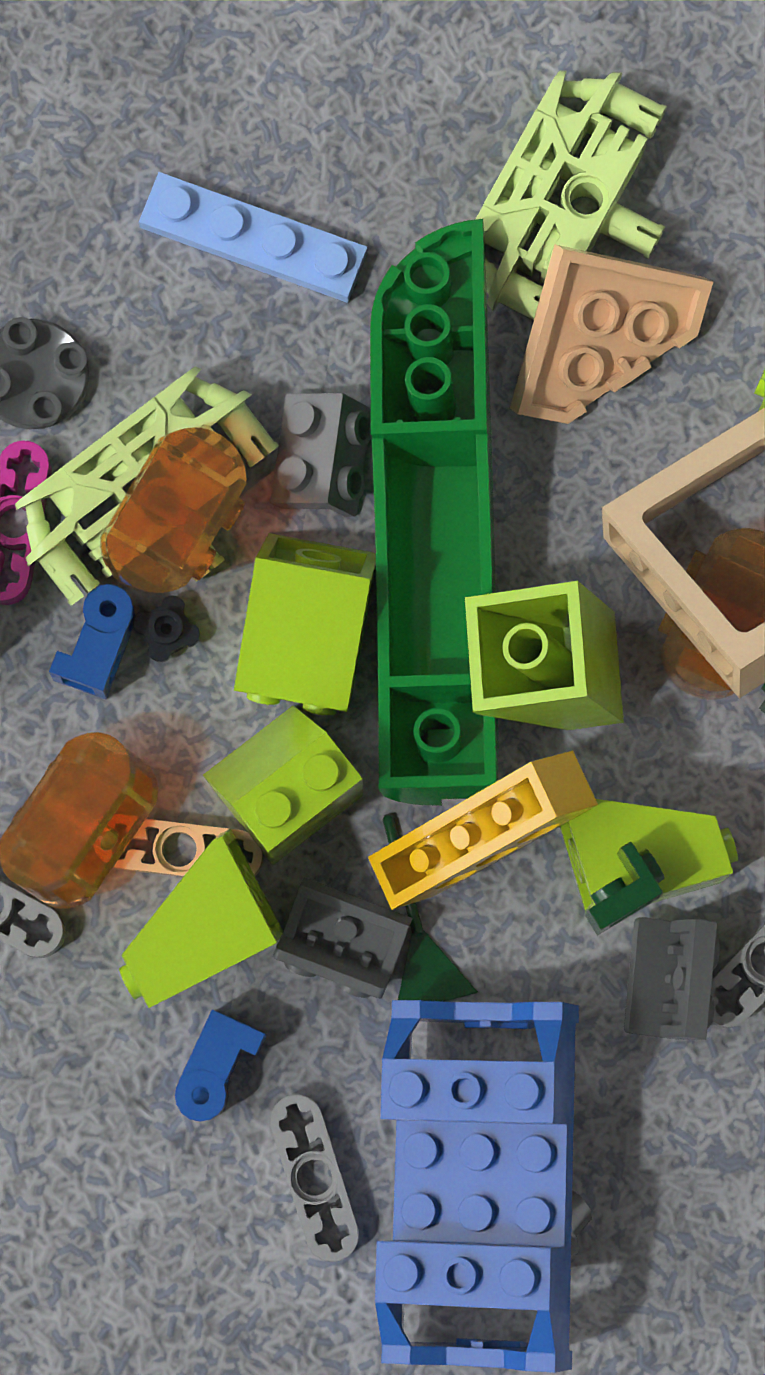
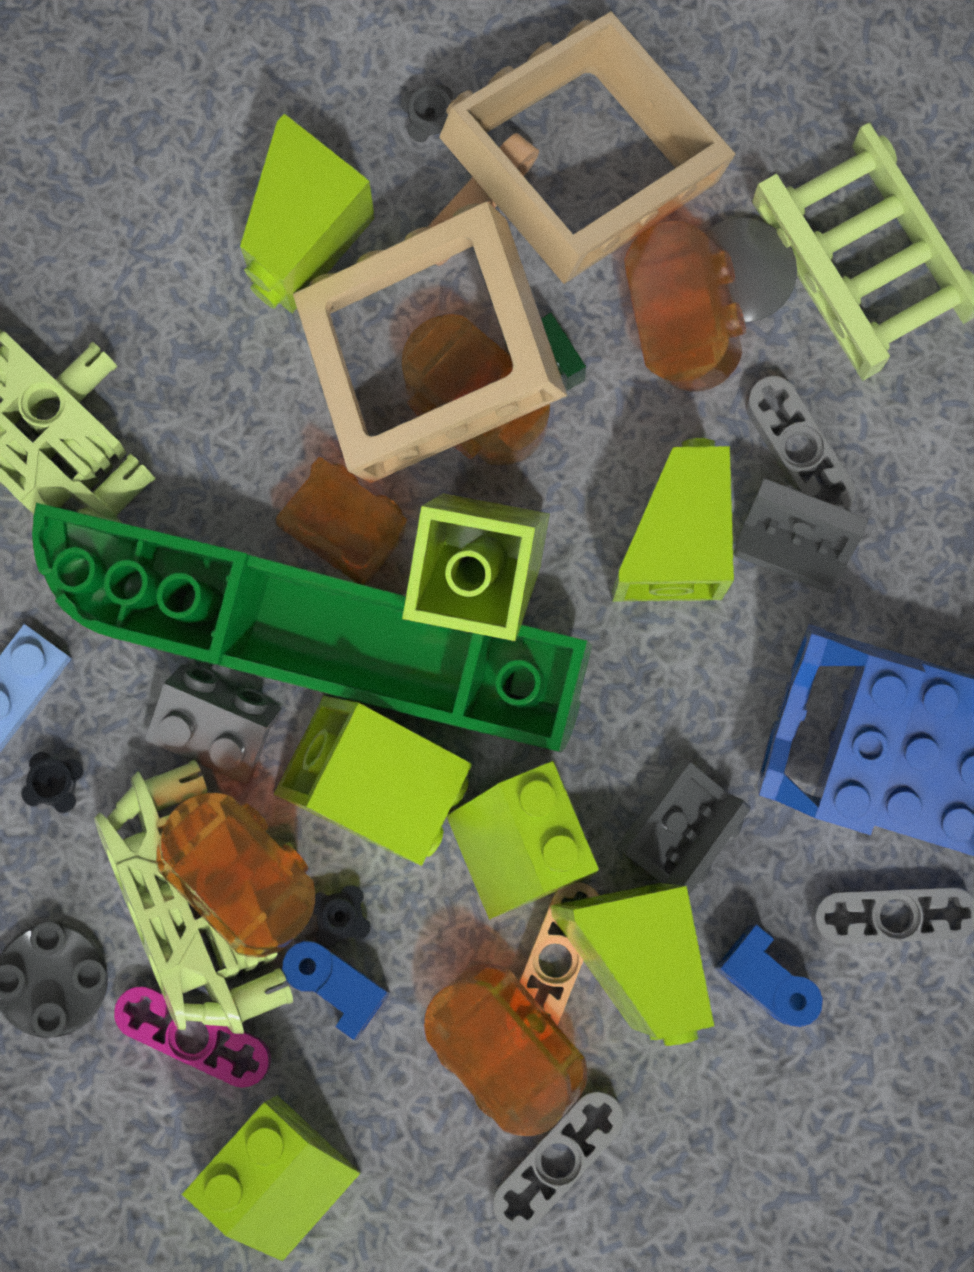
camera: 75 degrees left, 0 degrees up
(221, 304) = (41, 770): none -> black plate
(427, 970) = (730, 758): dark green piece -> none
(483, 829) = (627, 663): yellow brick -> none
(554, 521) = (343, 521): none -> clear orange bracket
(601, 329) = (173, 427): light nougat plate -> none
(618, 901) = (734, 553): dark green bracket -> none

